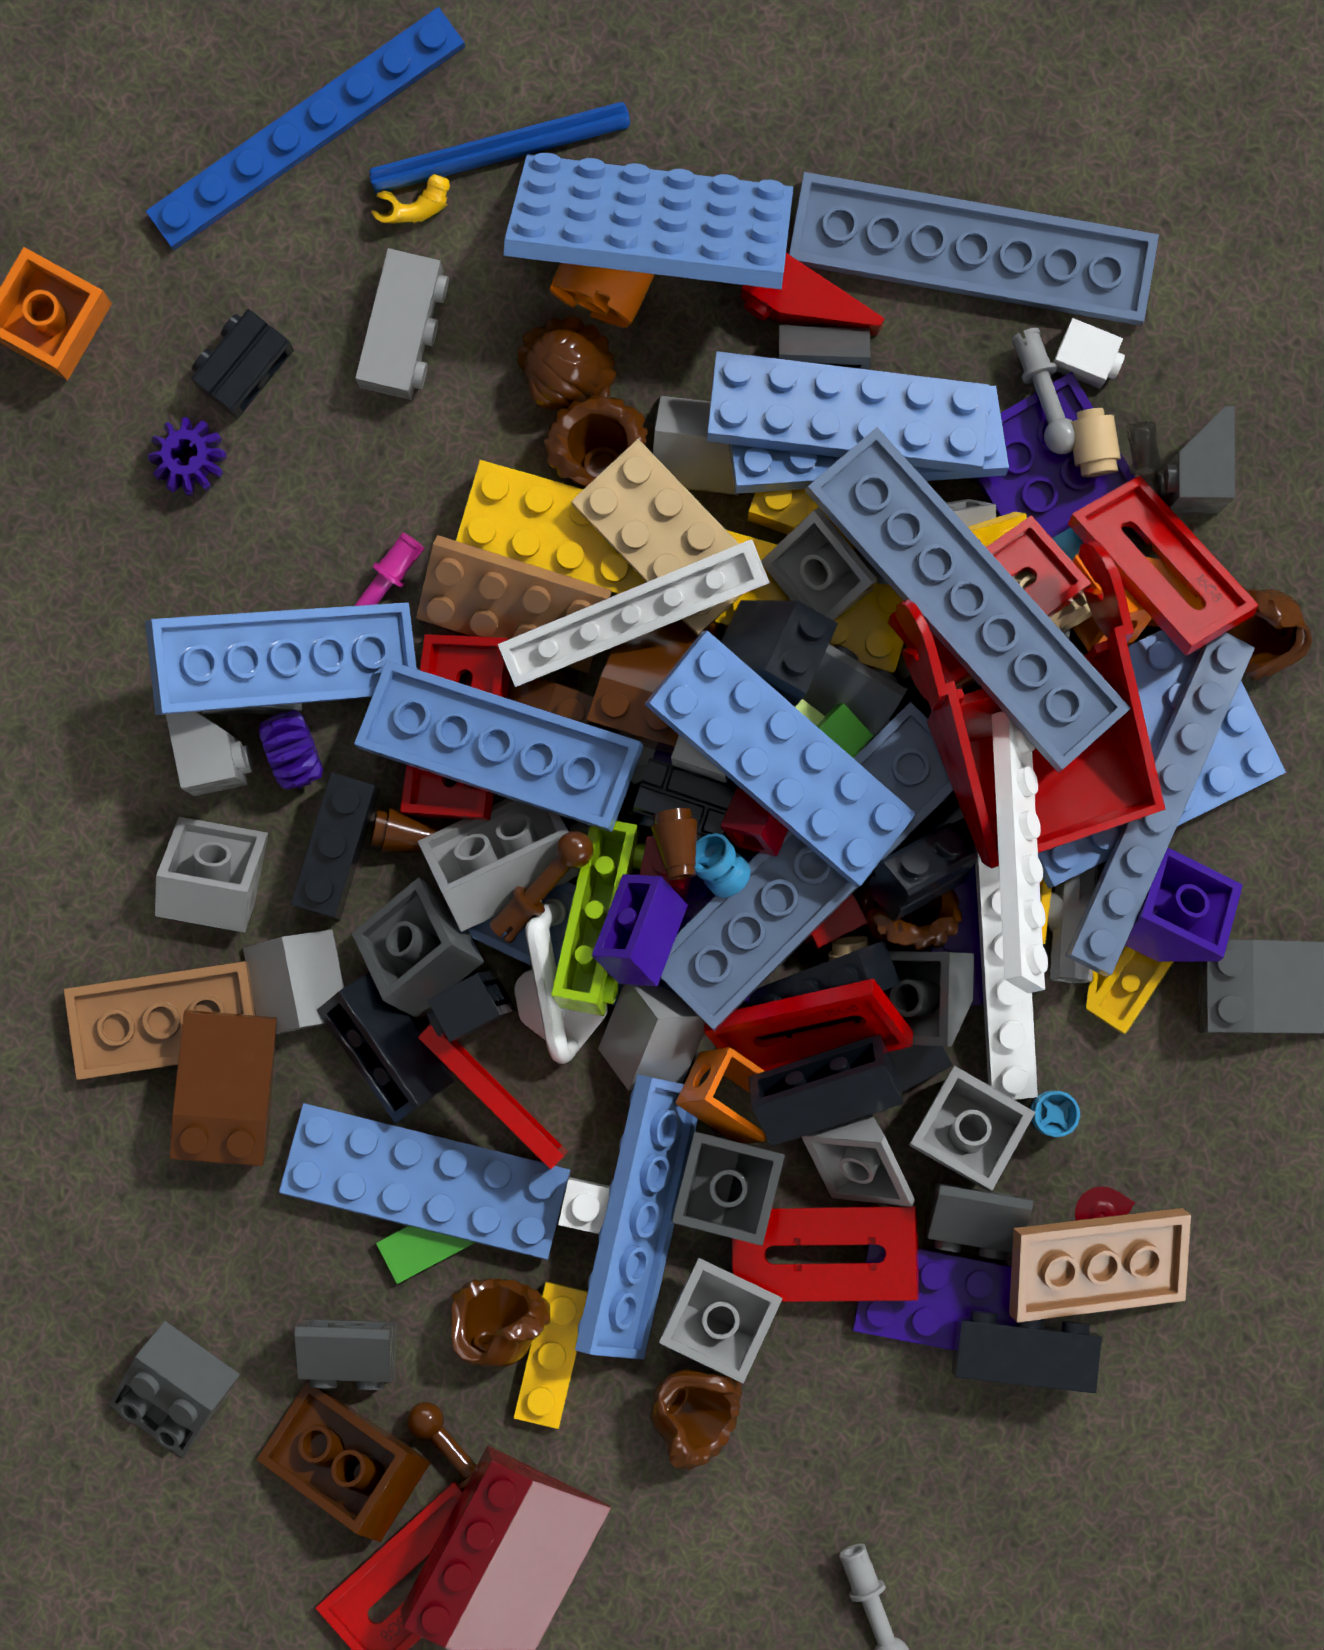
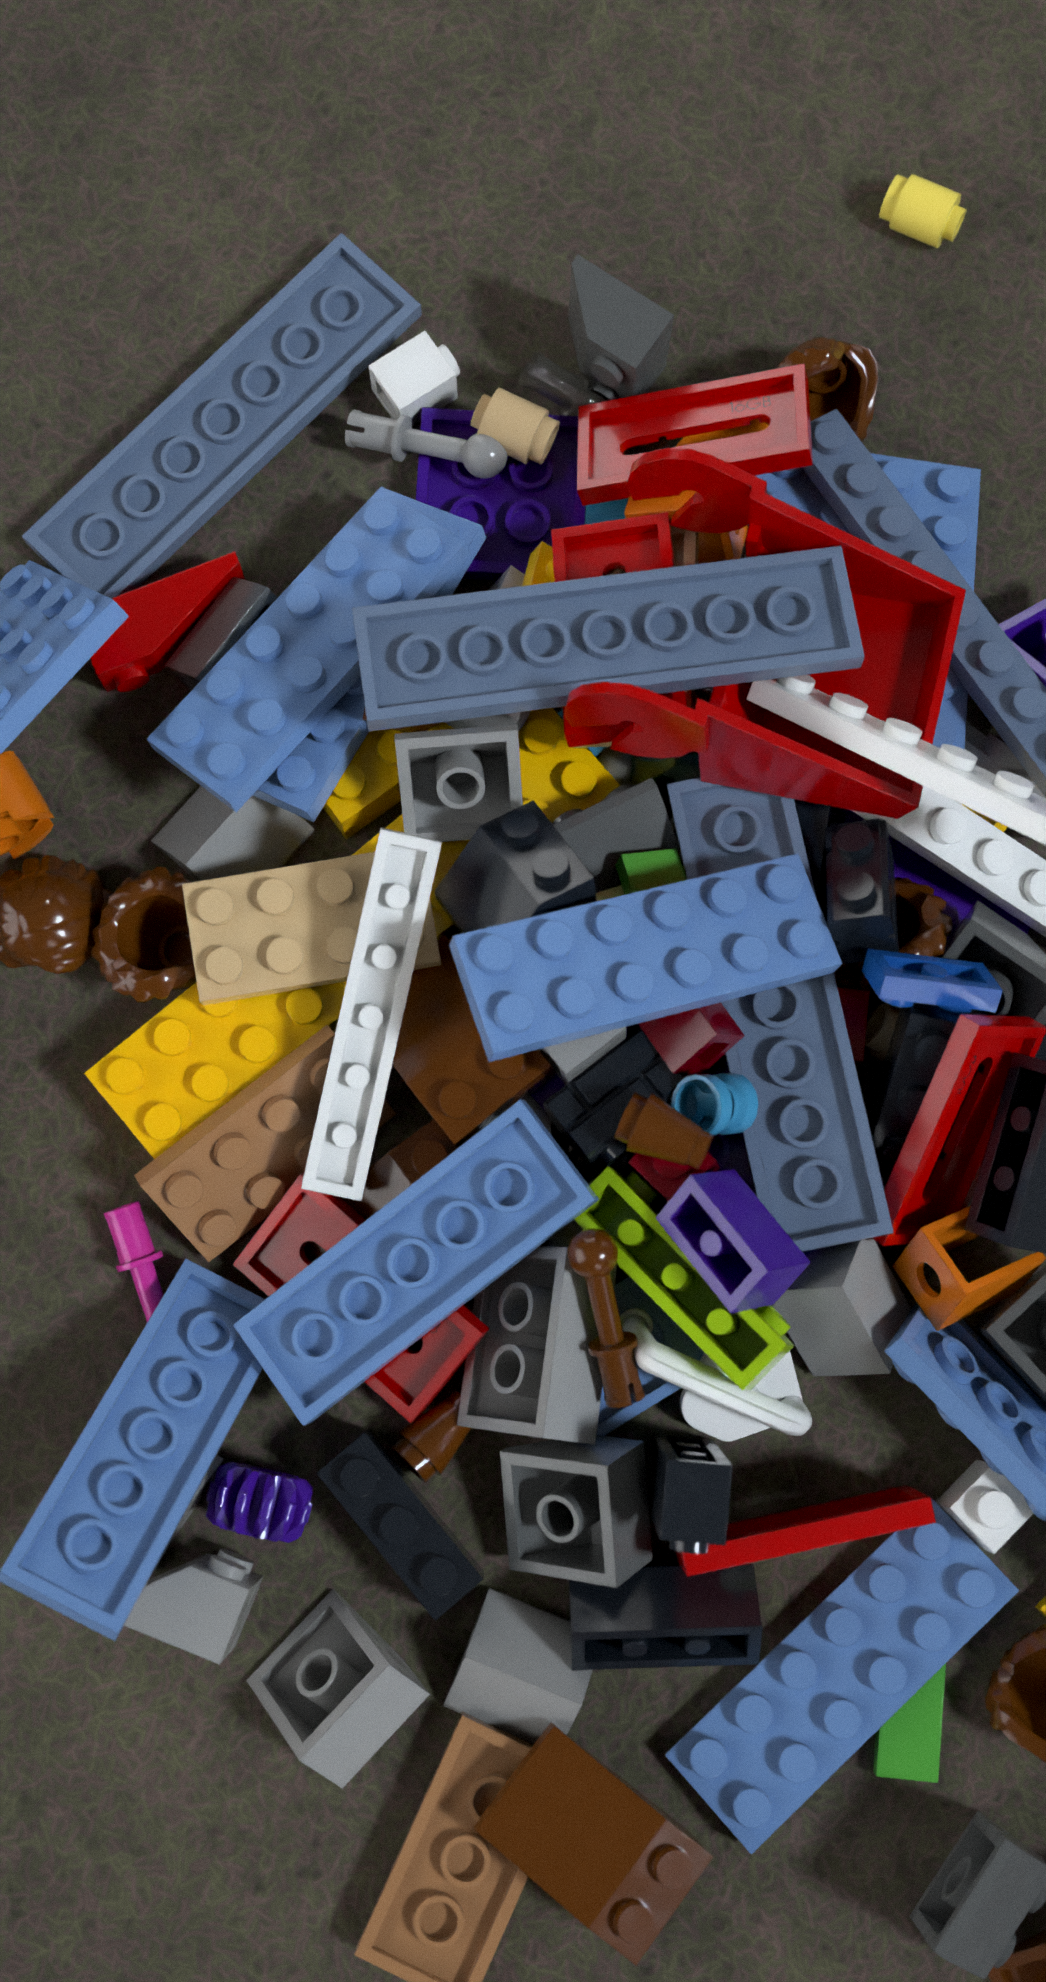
camera: 60 degrees left, 5 degrees down
(889, 951) = (944, 982): none -> blue plate

